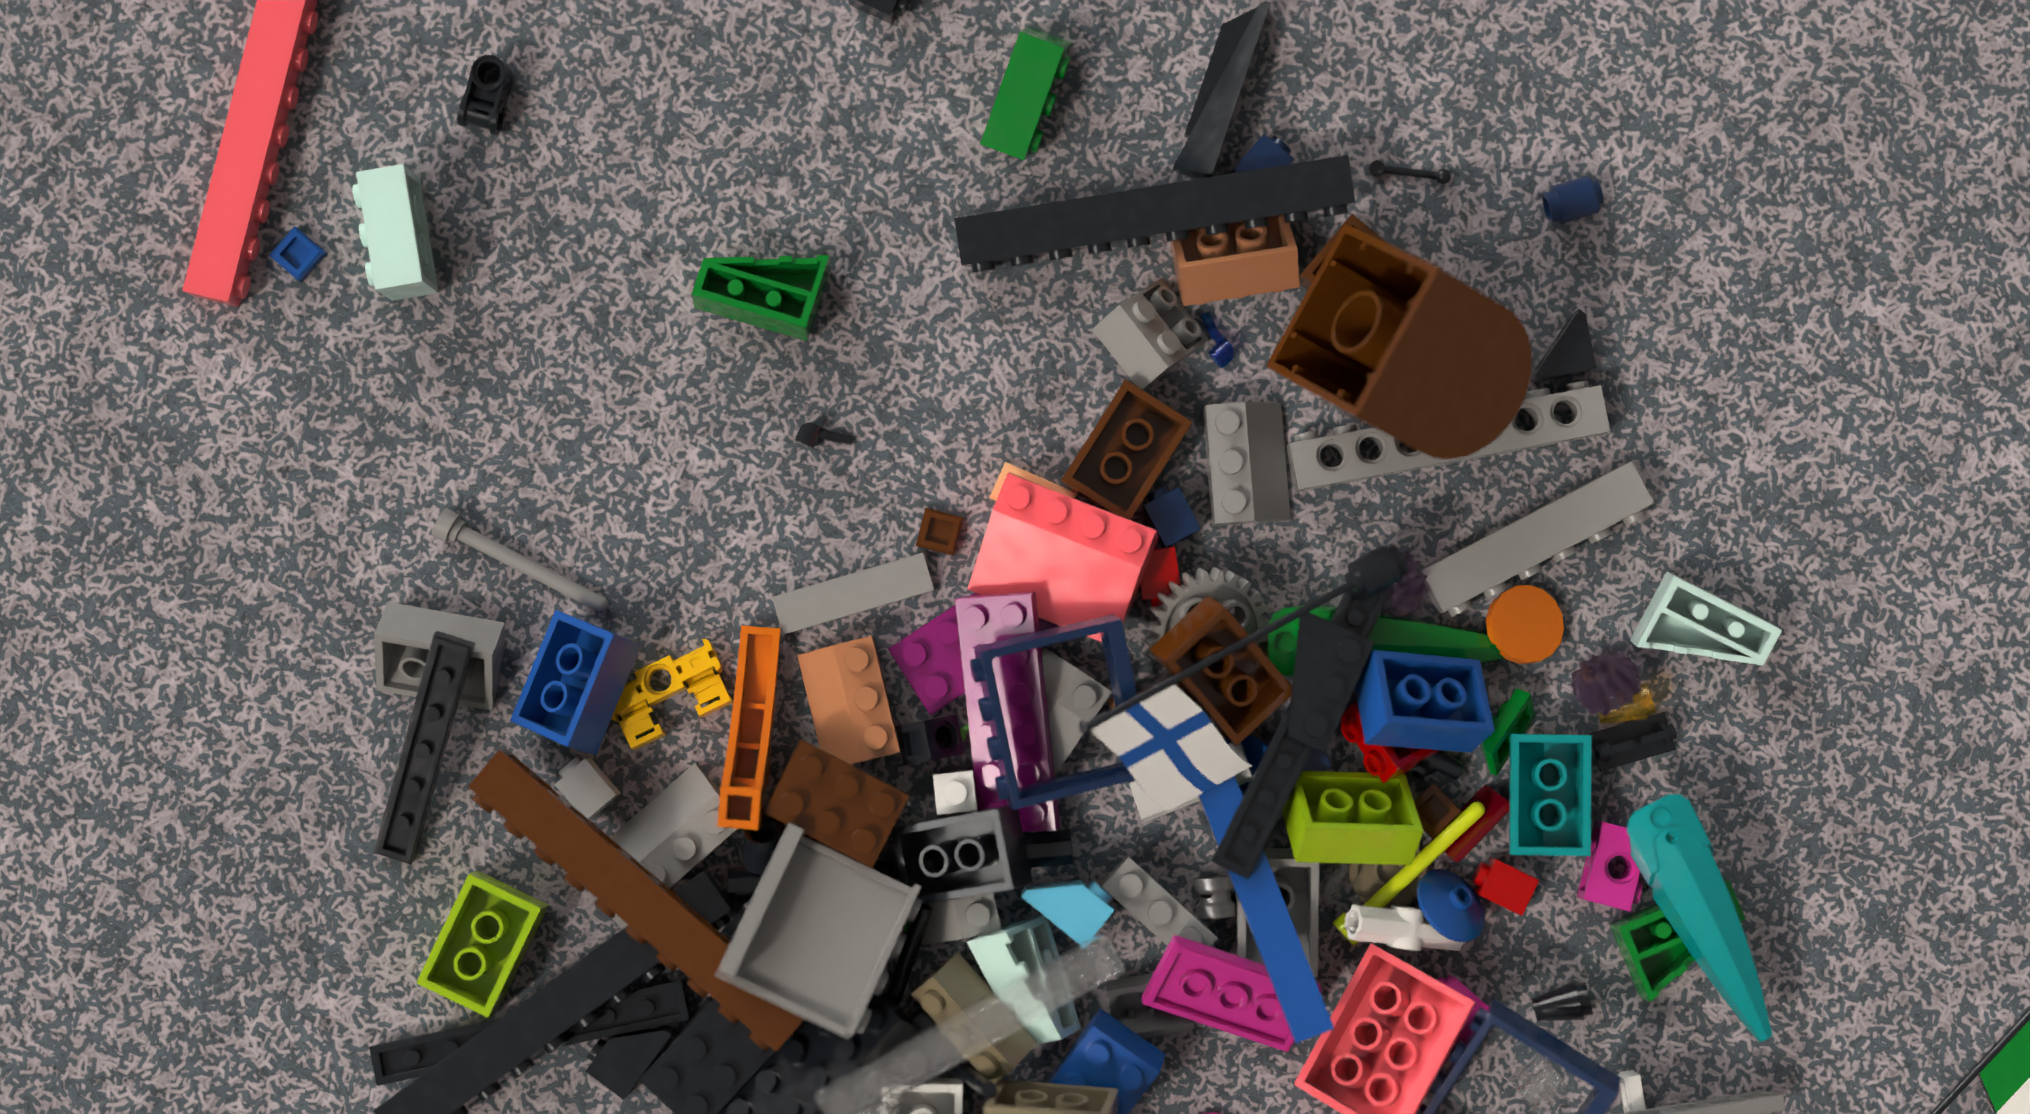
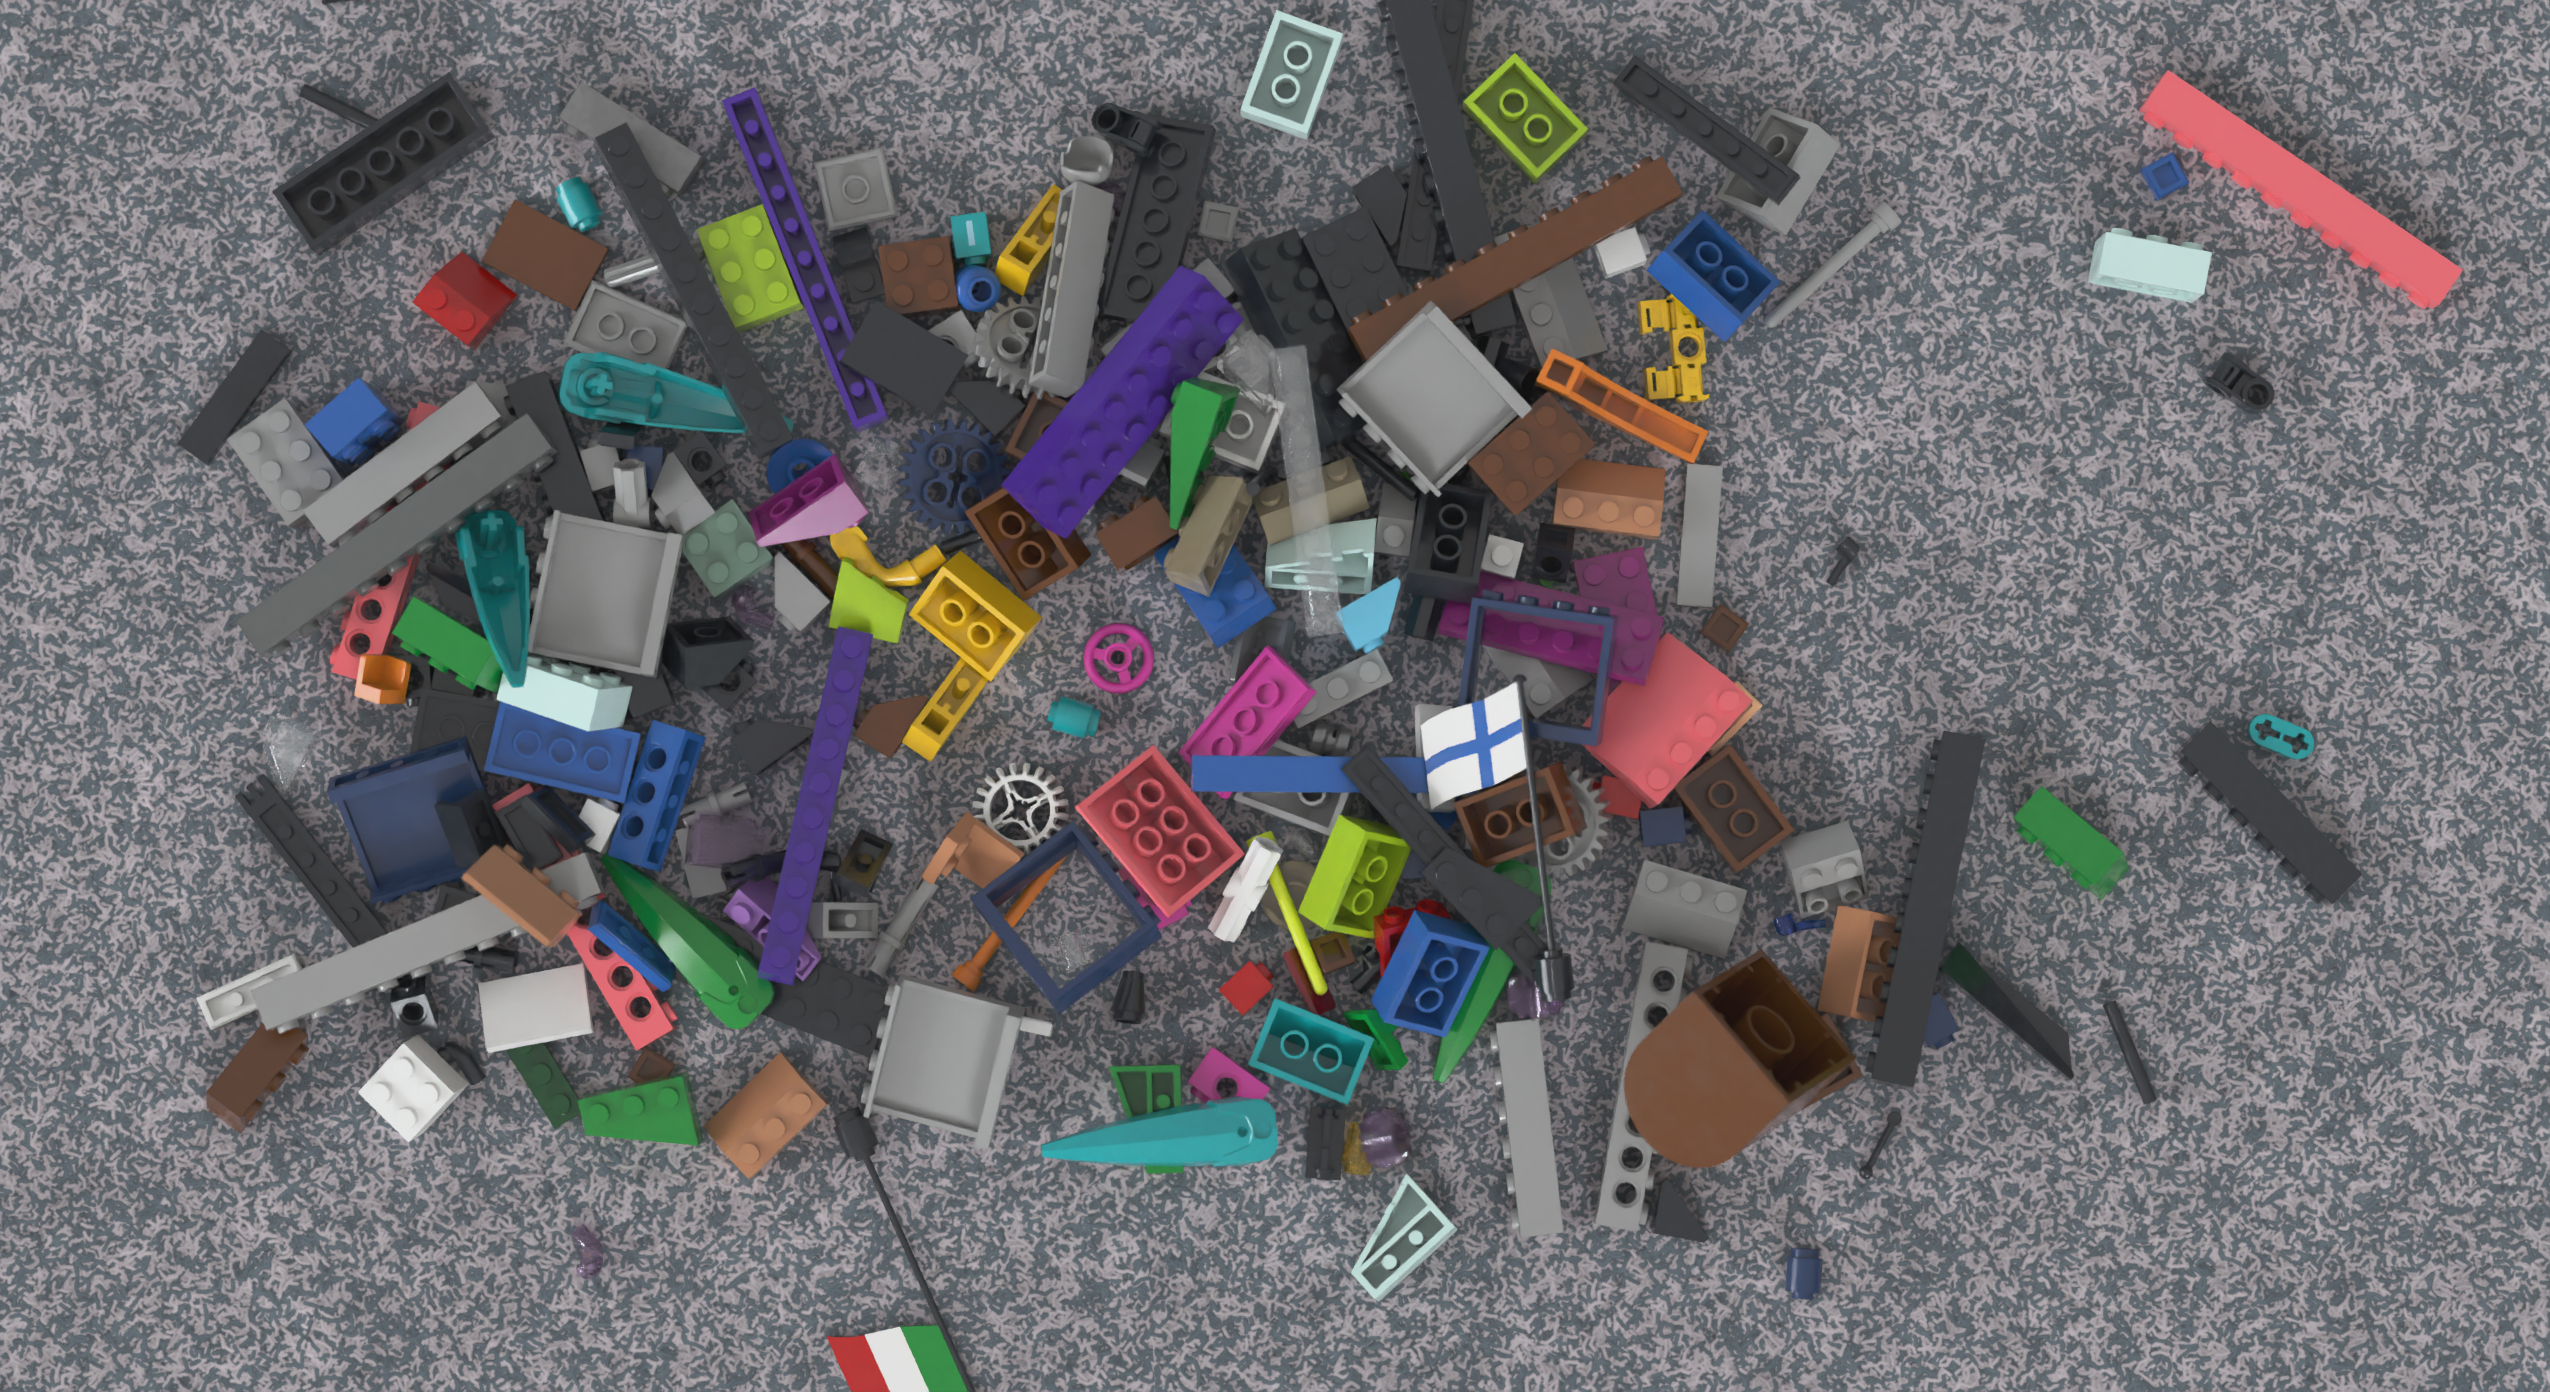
camera: 115 degrees right, 0 degrees up
(764, 292) = (1982, 556): green wedge -> none
(1450, 905) = (1249, 934): blue dish -> none
(1525, 624) = (1459, 1090): orange tile -> none

